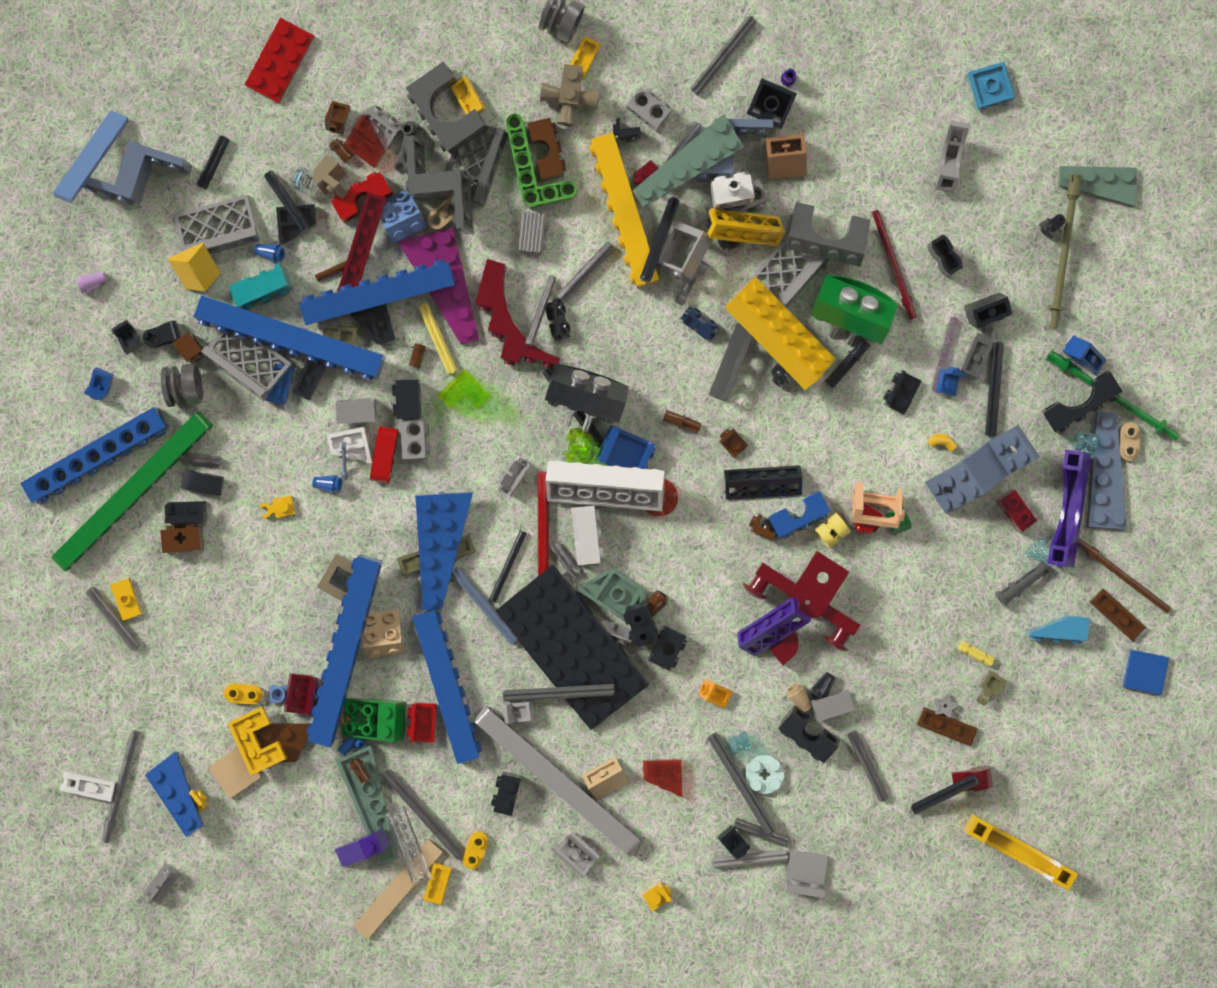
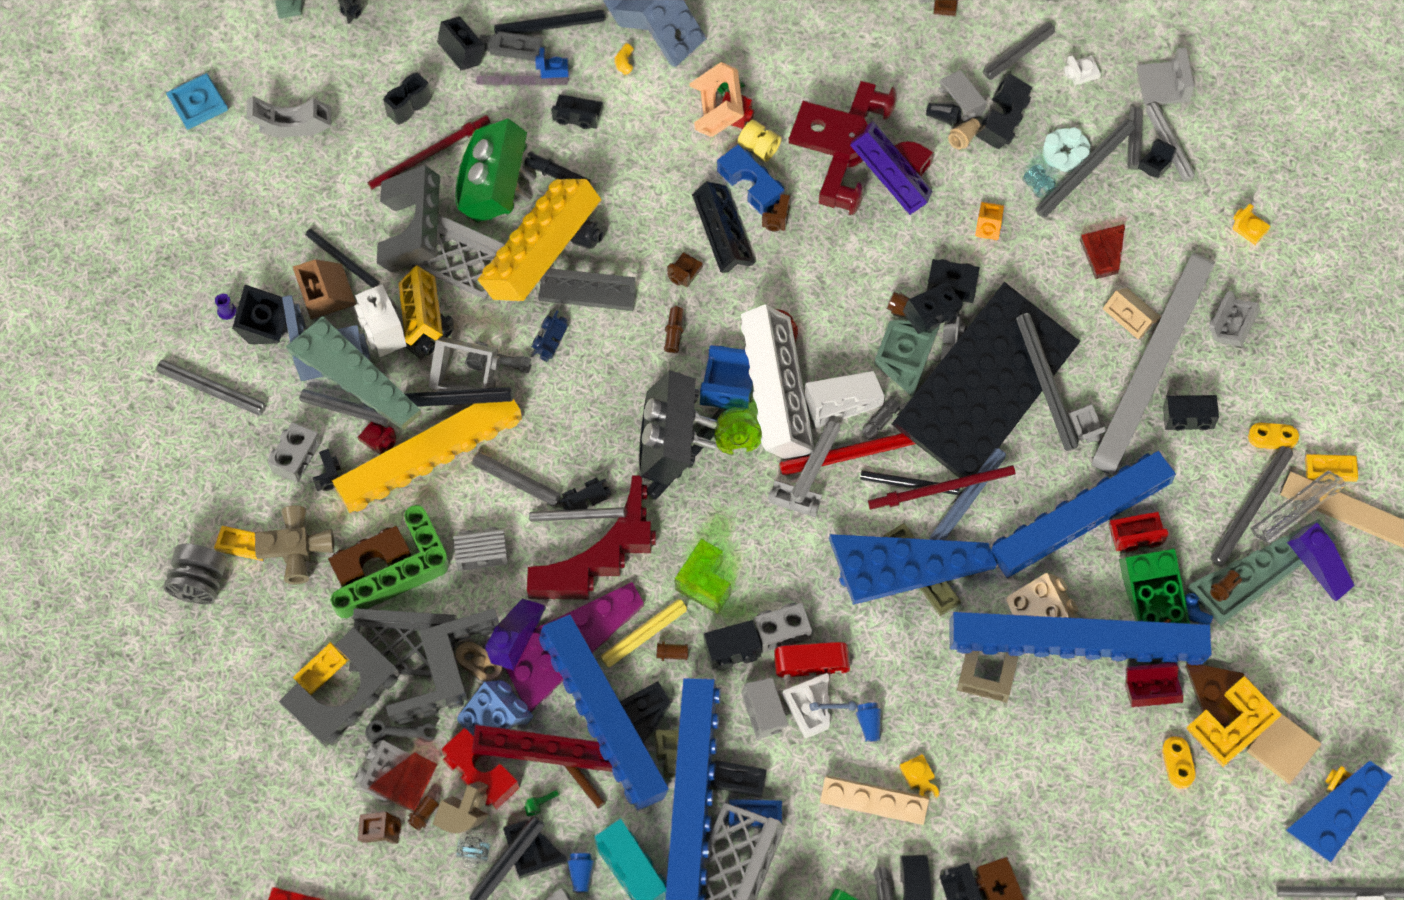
camera: 100 degrees left, 25 degrees down
(269, 470) = (874, 799): none -> tan plate
(273, 694) = (1167, 711): medium blue plate -> none
(327, 229) = (532, 804): none -> green hand
(456, 243) = (514, 633): none -> dark purple slope
(496, 549) = (894, 498): none -> dark red bar
(536, 498) = (815, 461): none -> light grey axle
(812, 177) = (342, 258): none -> black bar
(835, 810) = (1081, 70): none -> white bracket

